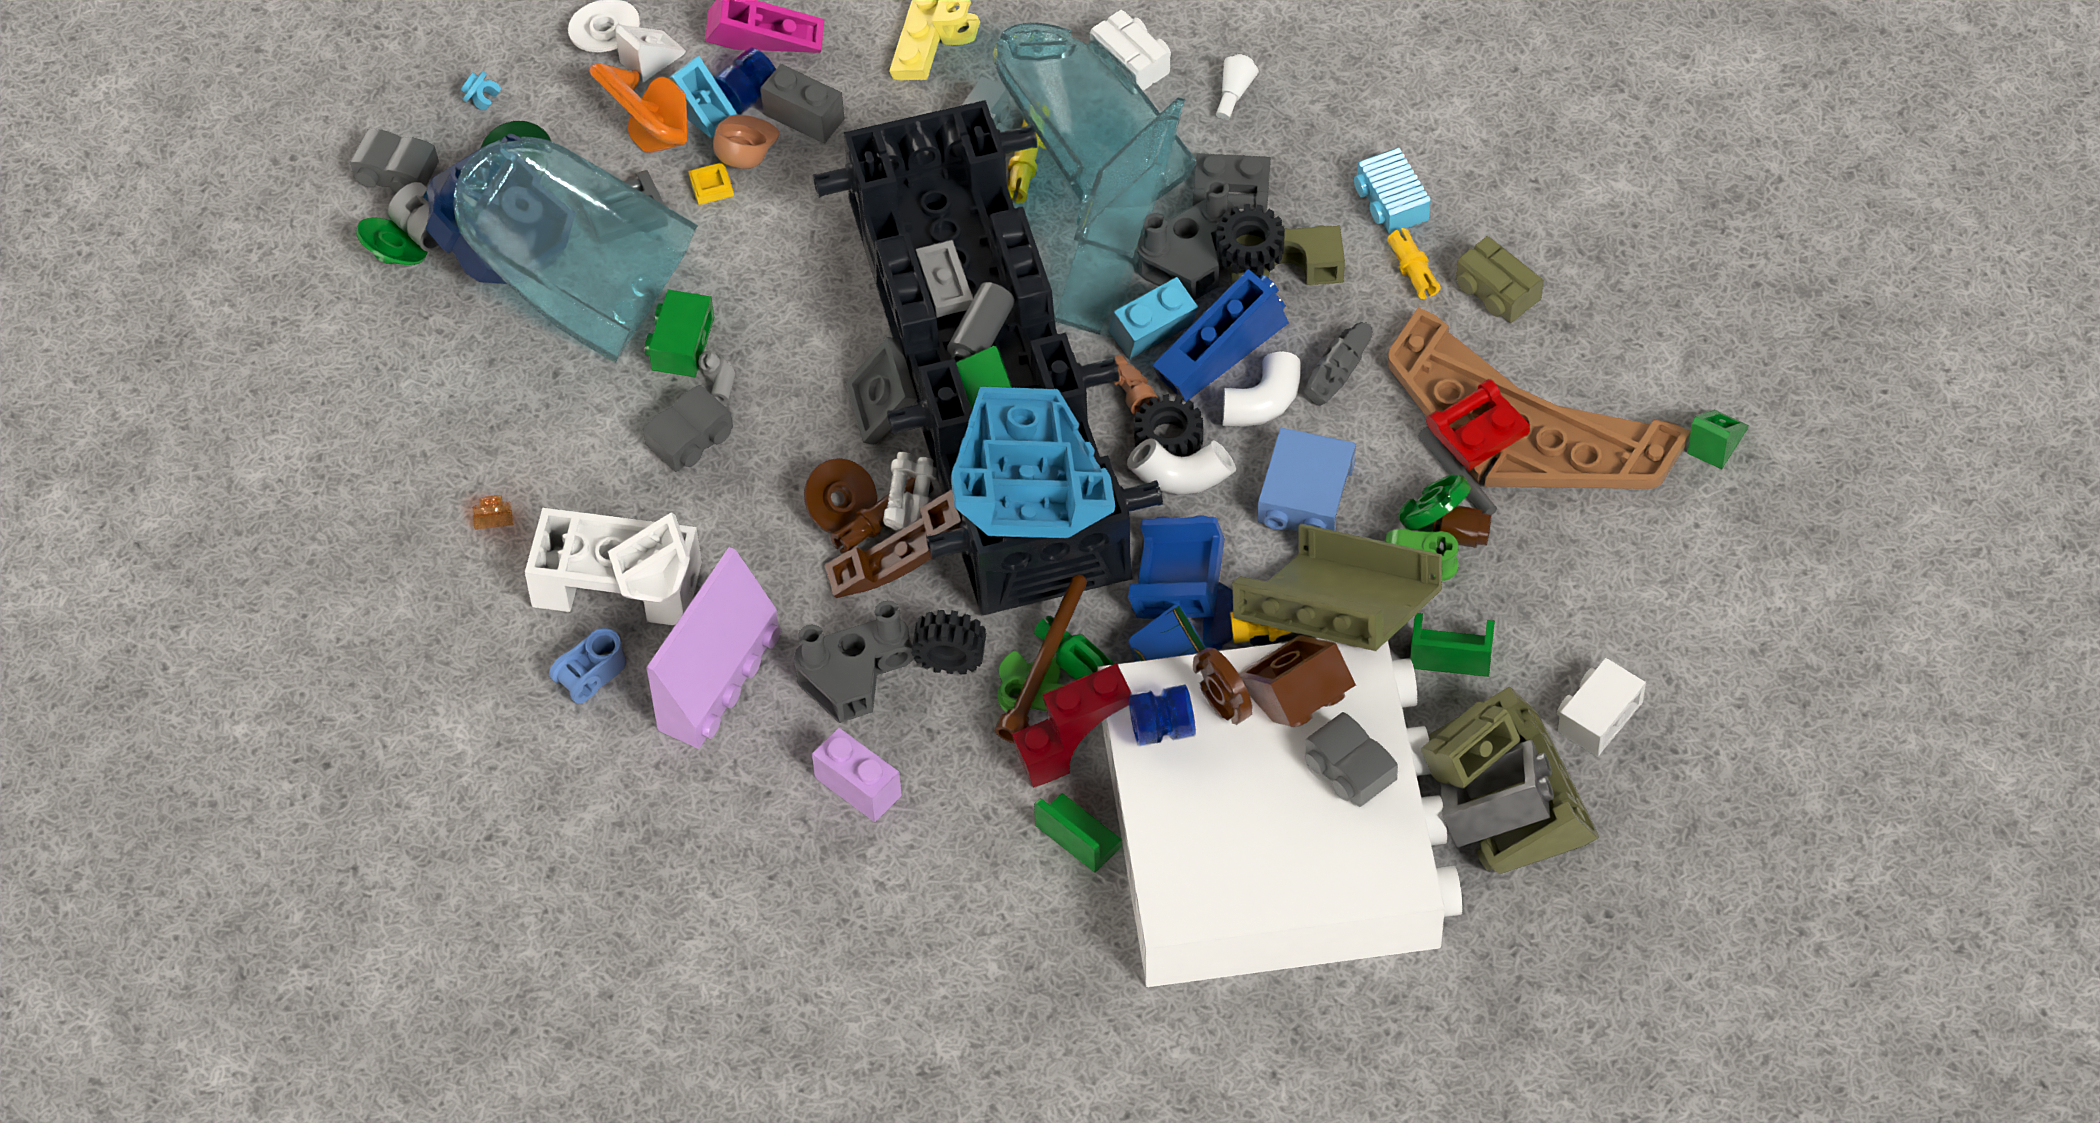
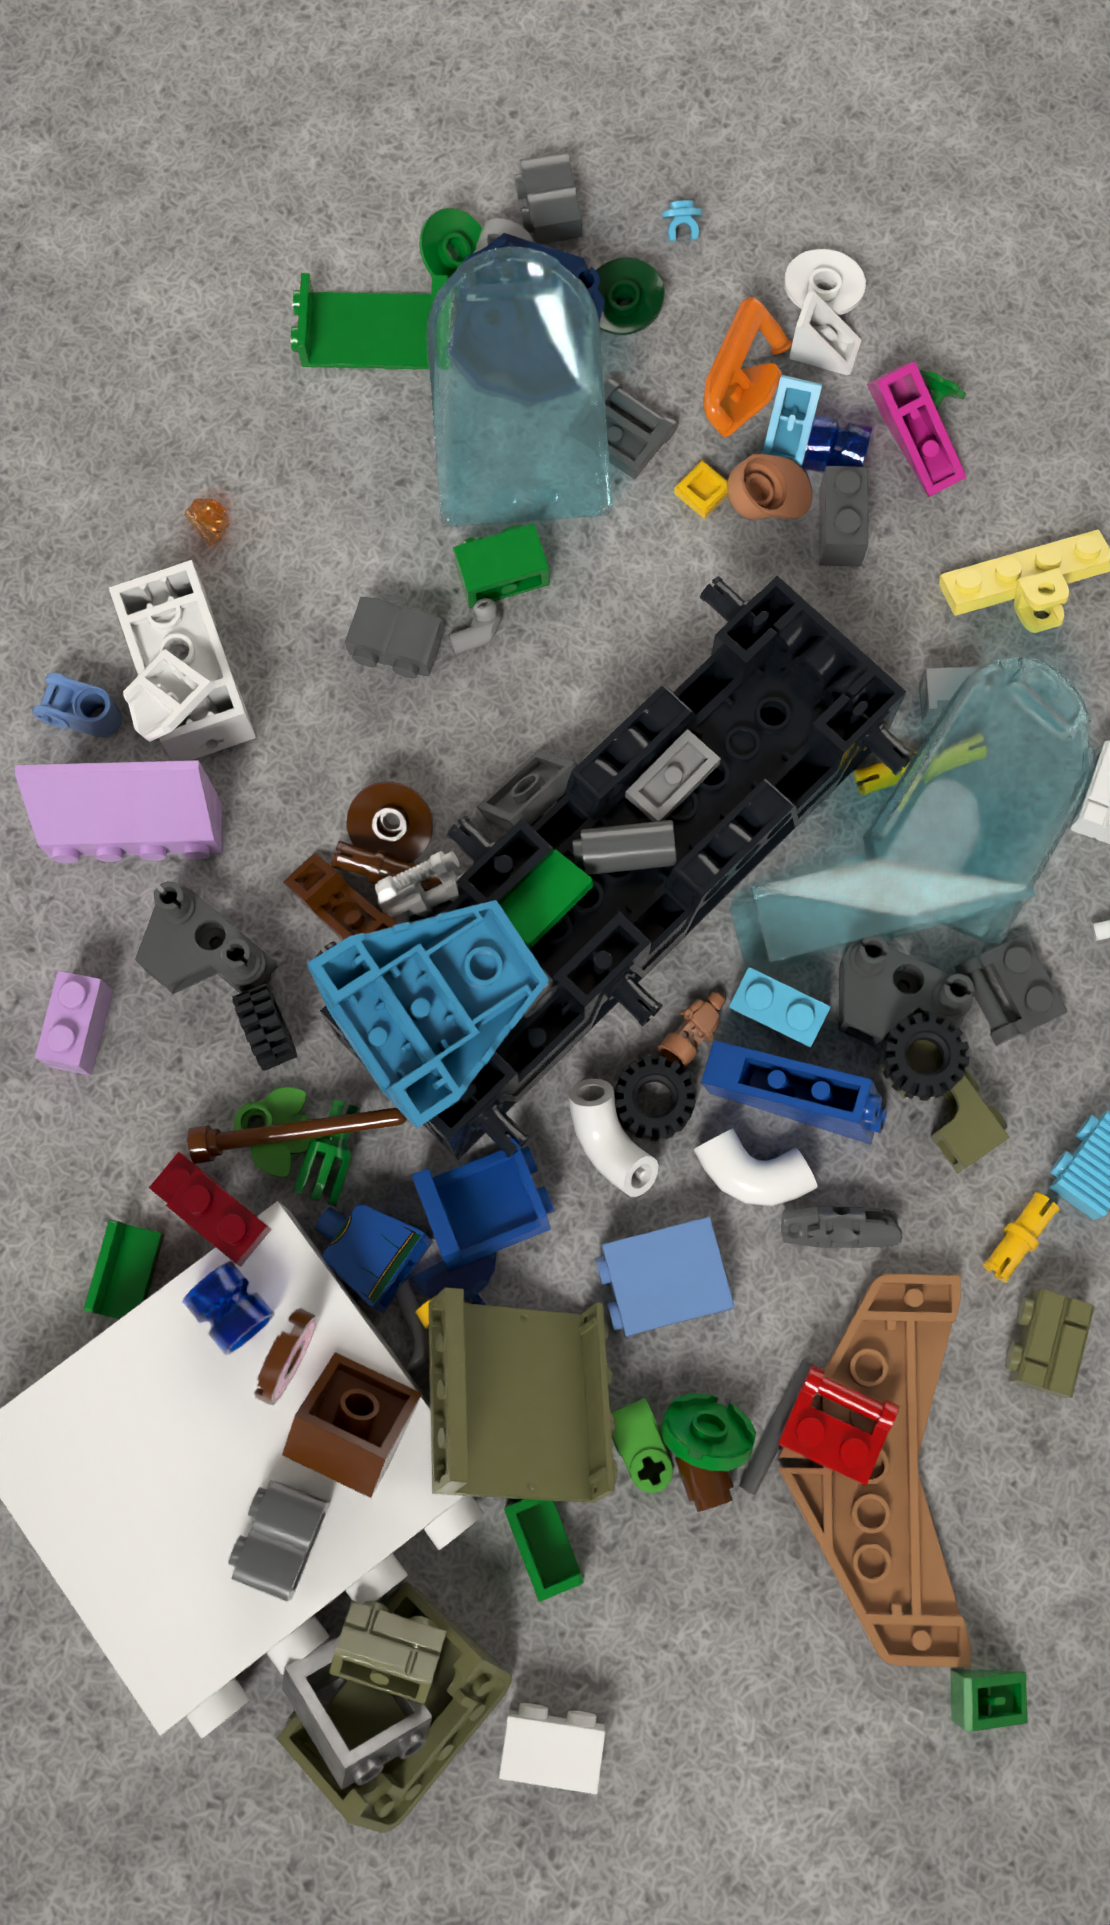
camera: 60 degrees right, 20 degrees up
(413, 326) = (362, 328): none -> green panel

